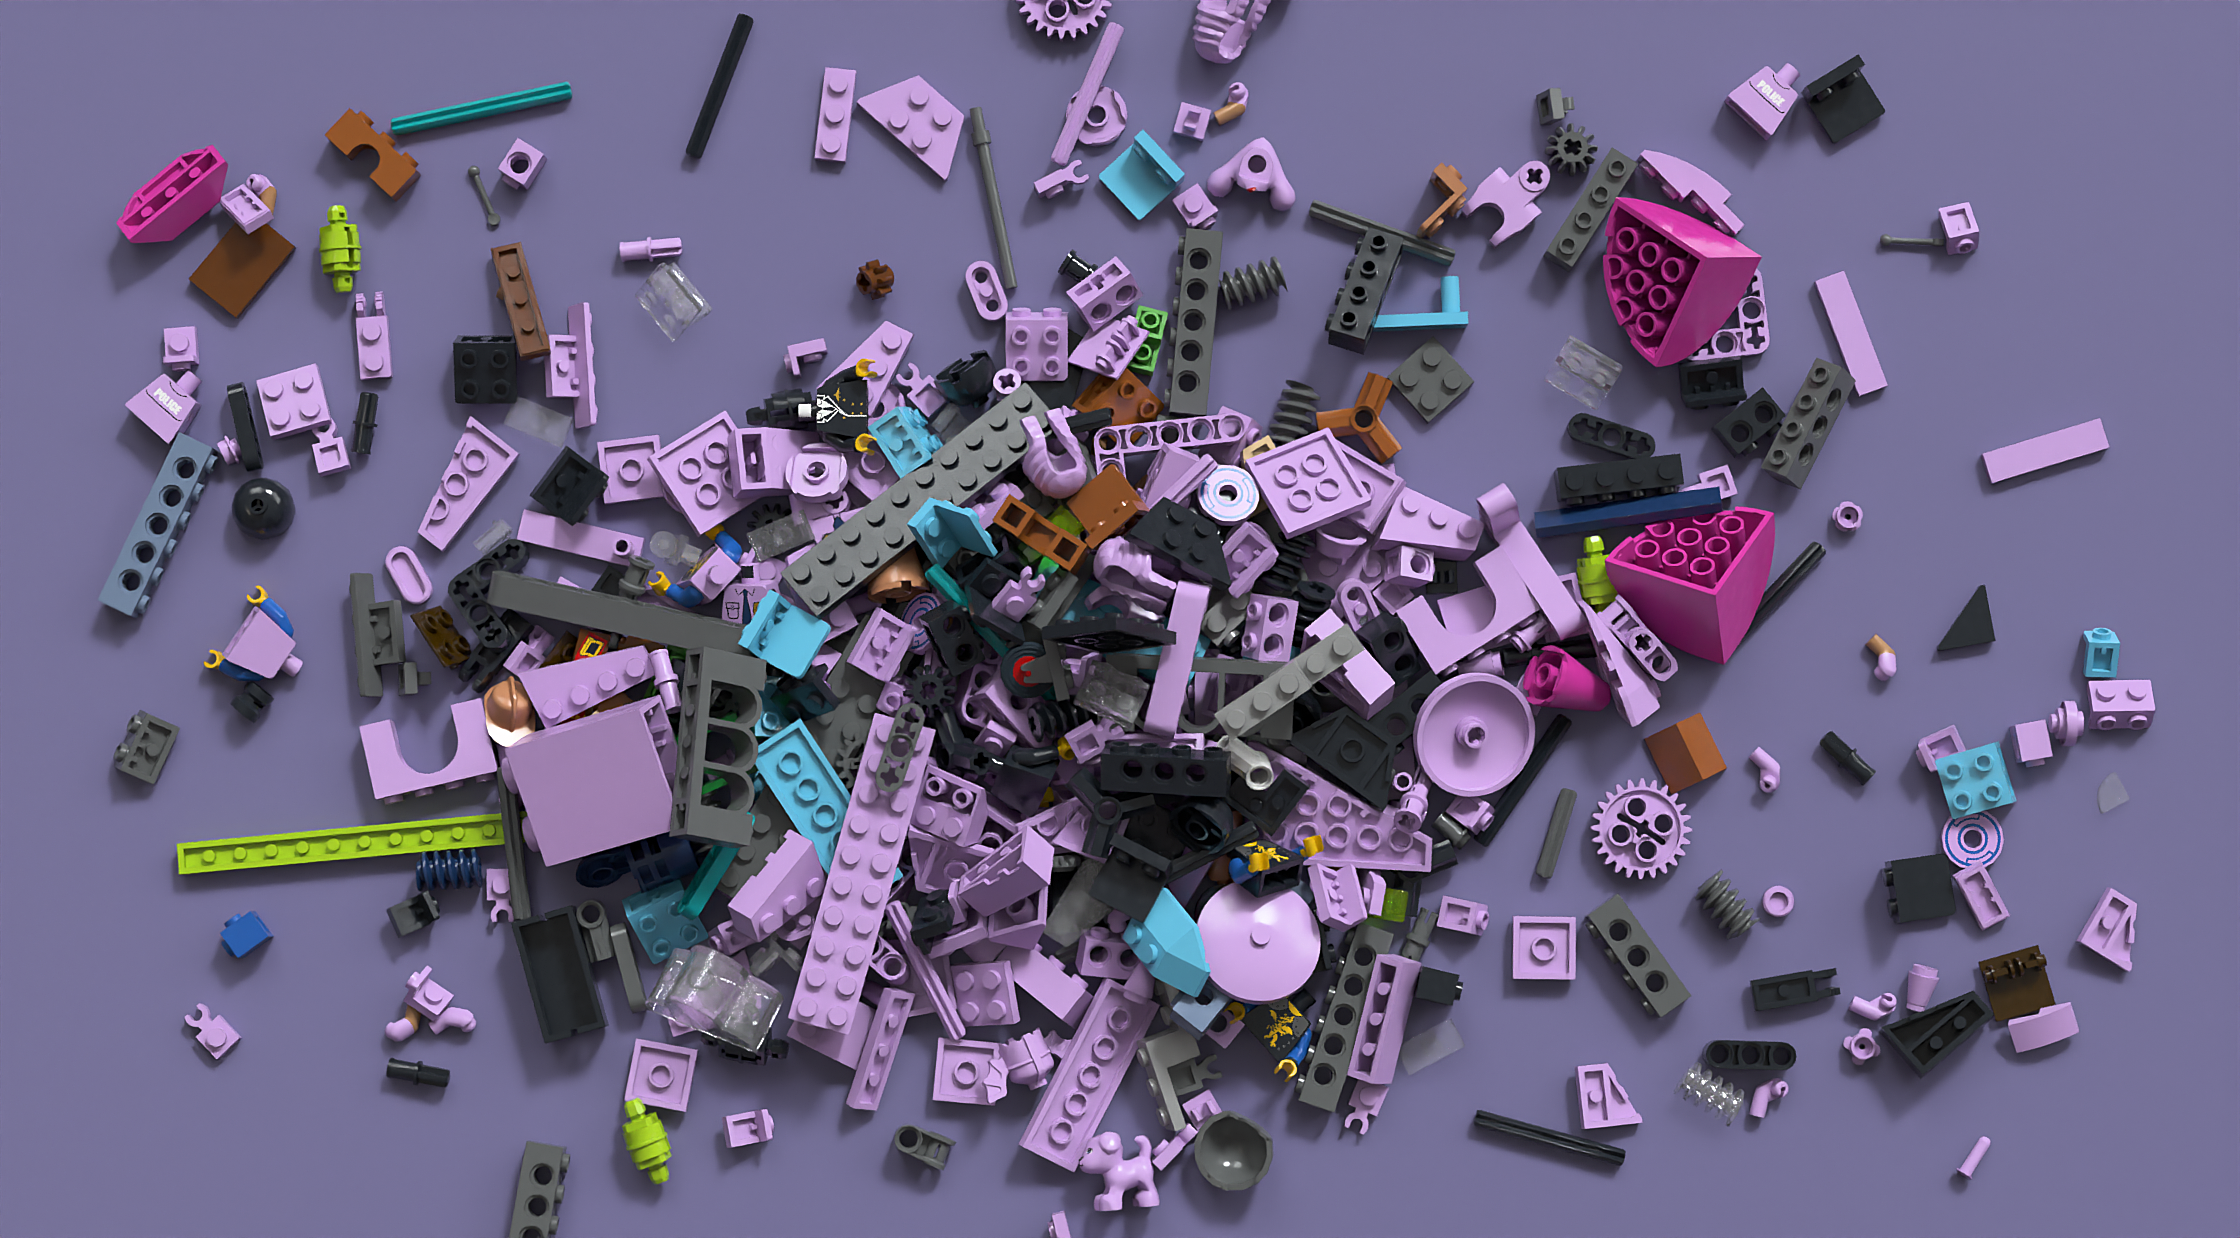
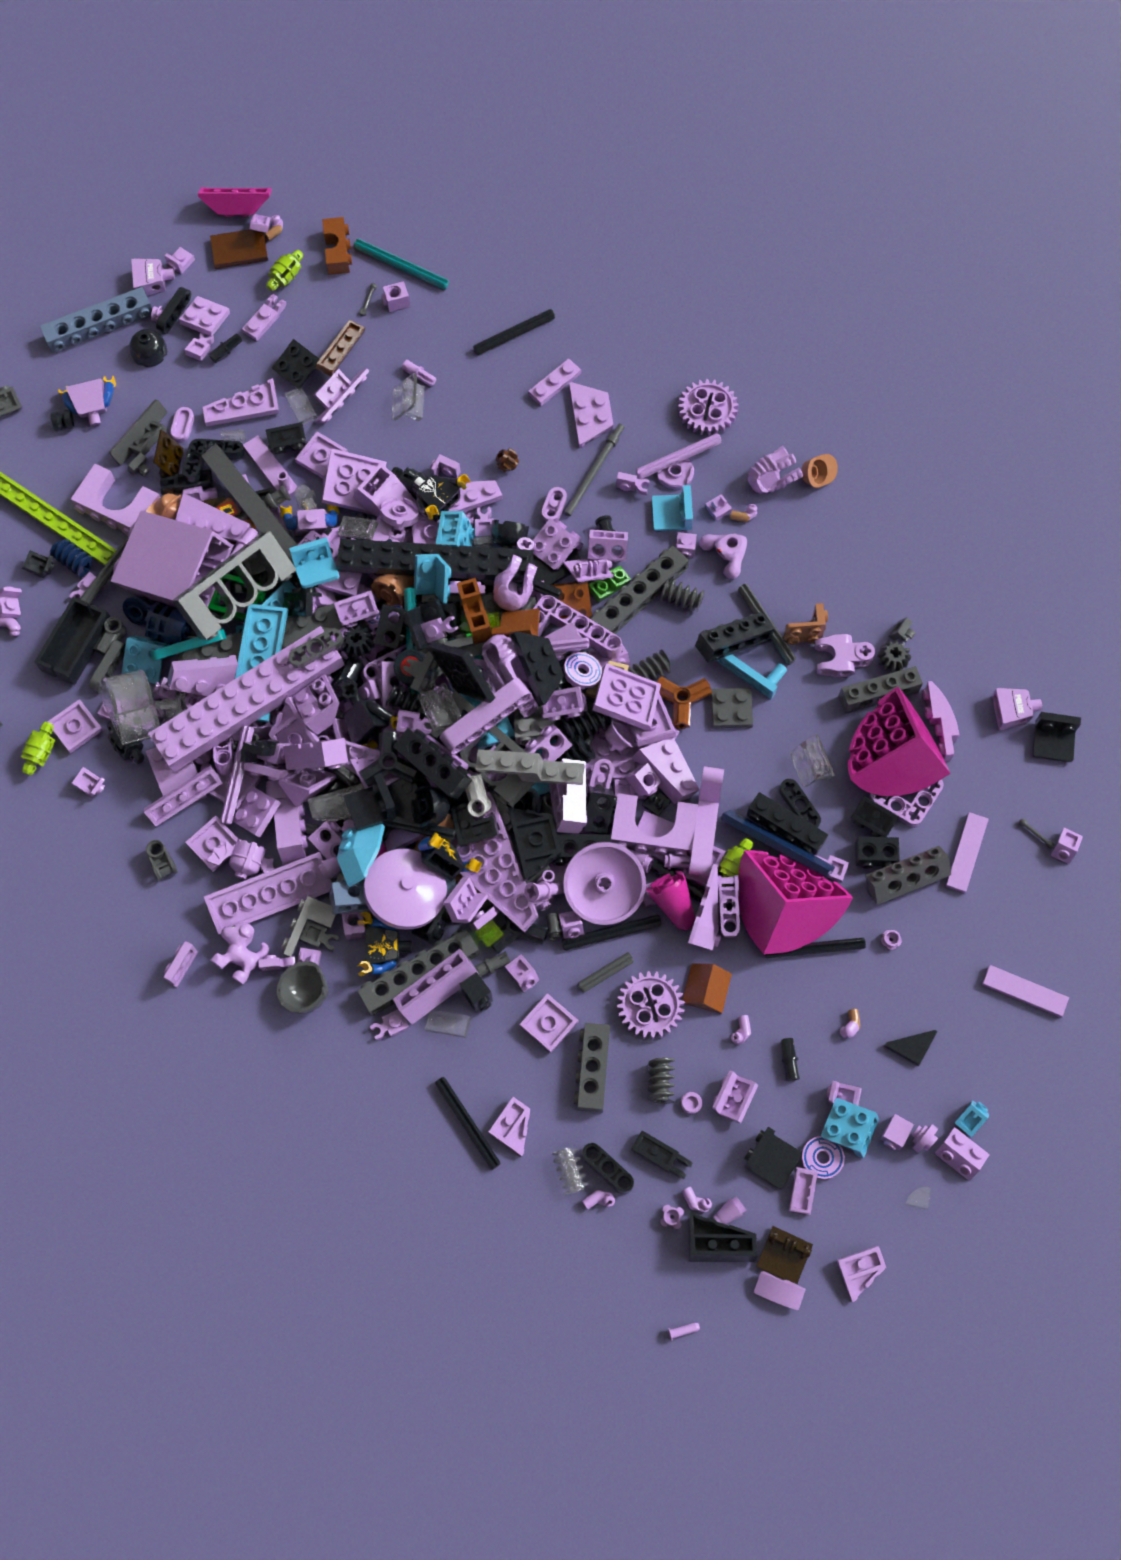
camera: 45 degrees right, 15 degrees down
(1822, 855) = (734, 1097): none -> lavender bracket

